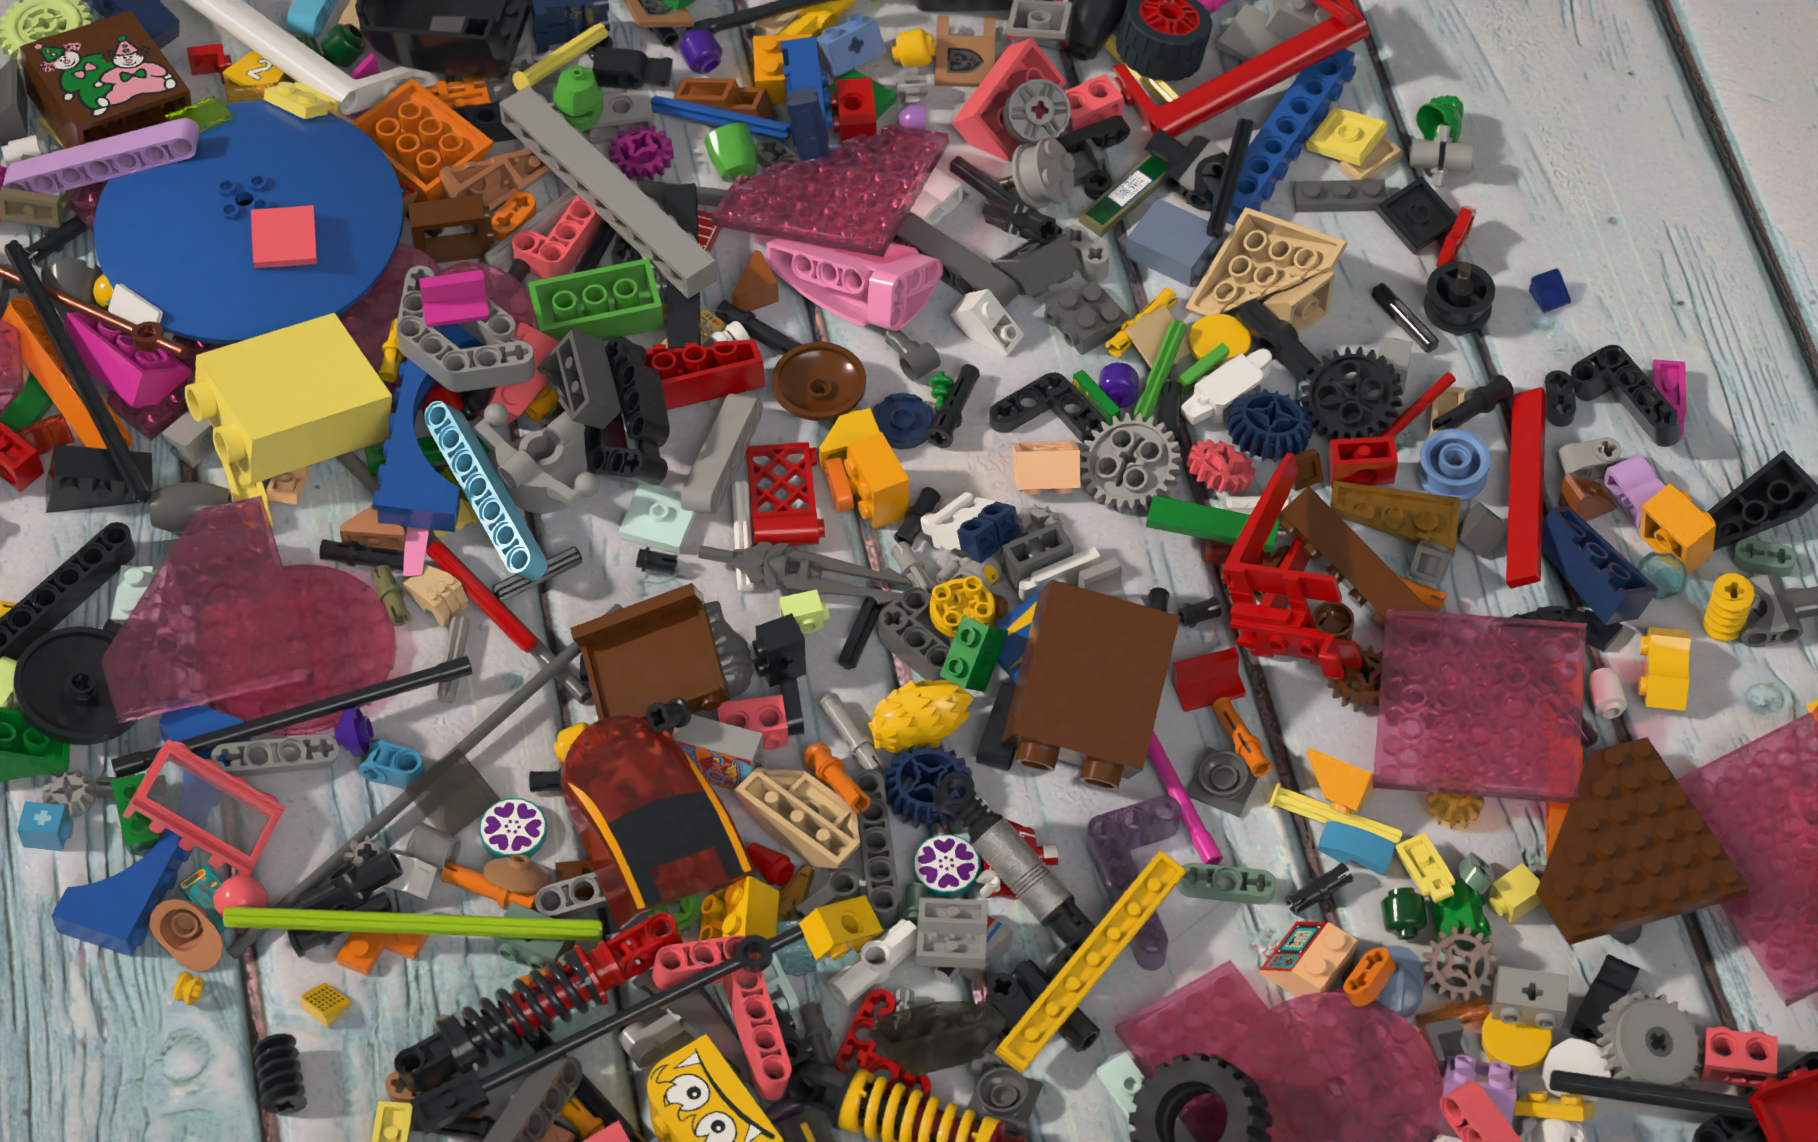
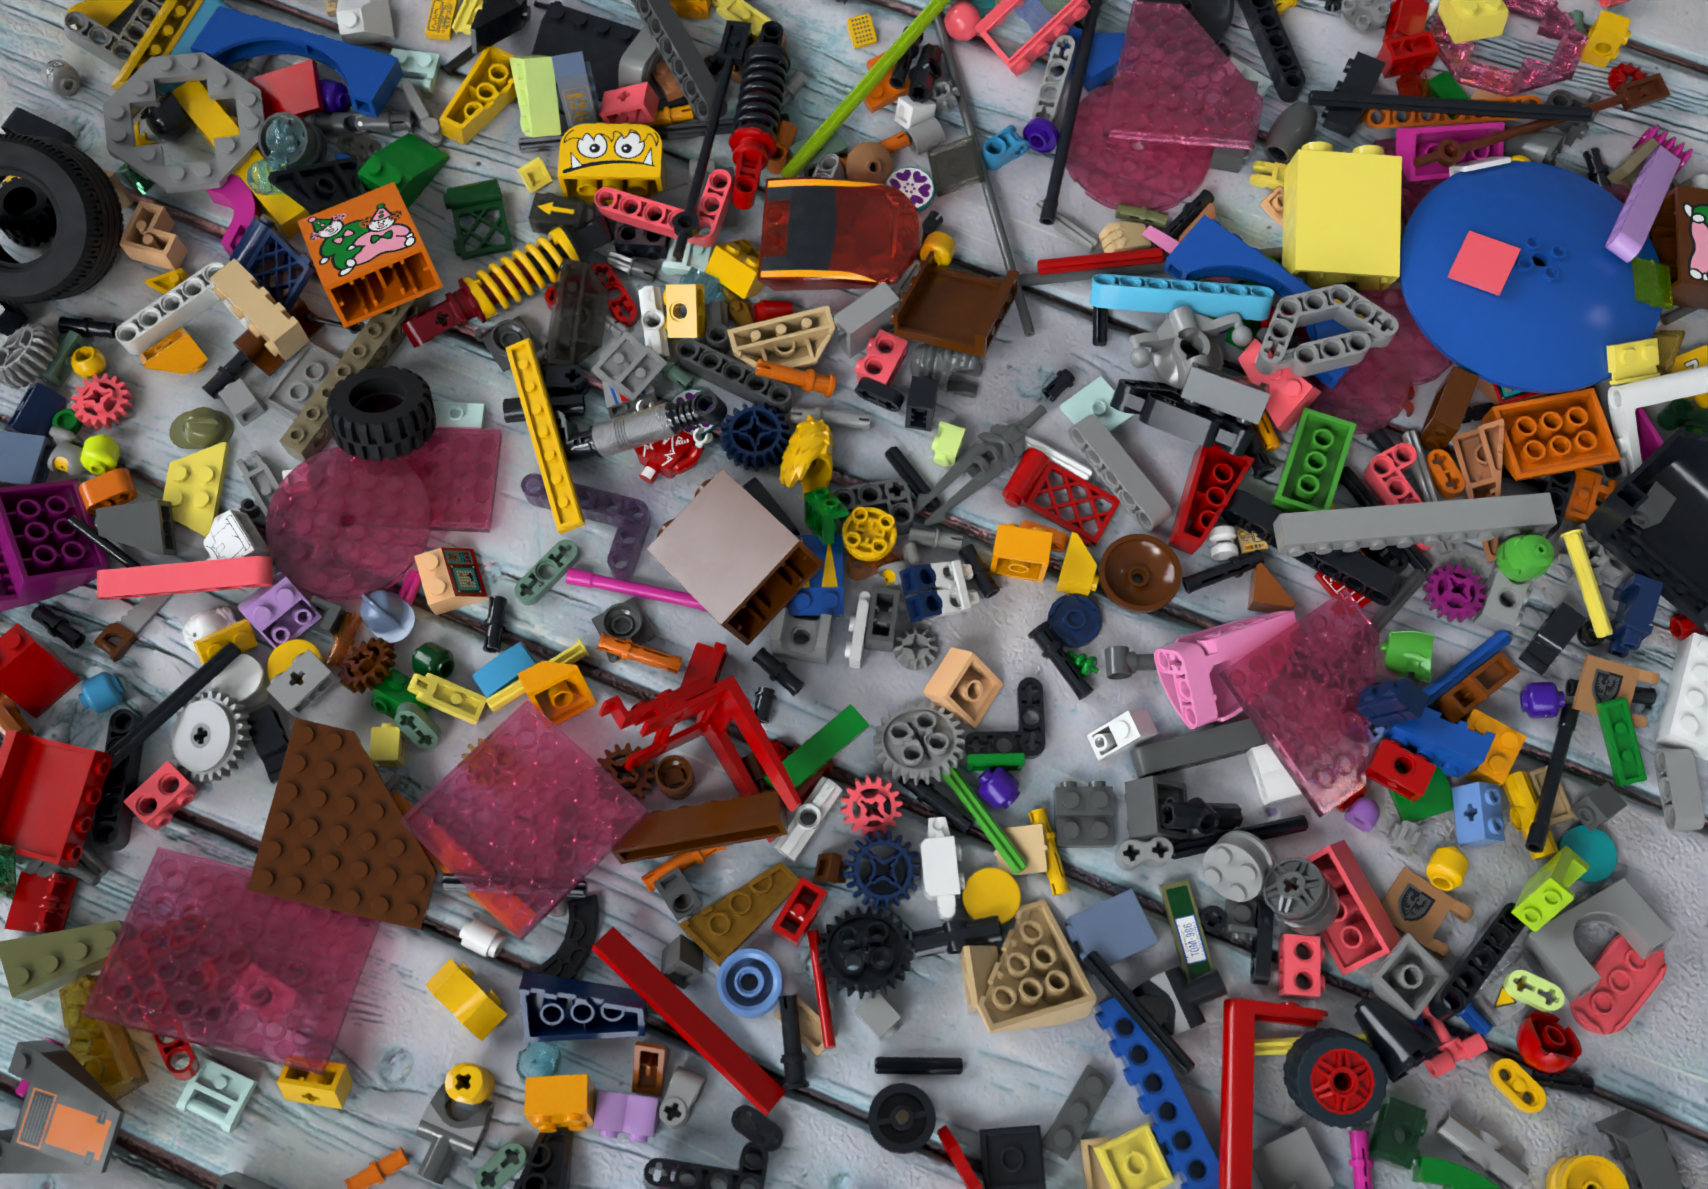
camera: 125 degrees right, 15 degrees up
(453, 298) = (1343, 329): dark pink panel -> none
(663, 716) = (897, 276): black bush -> none
(1203, 367) = (968, 855): bright green tile -> none
(1369, 976) = (393, 591): orange beam -> none

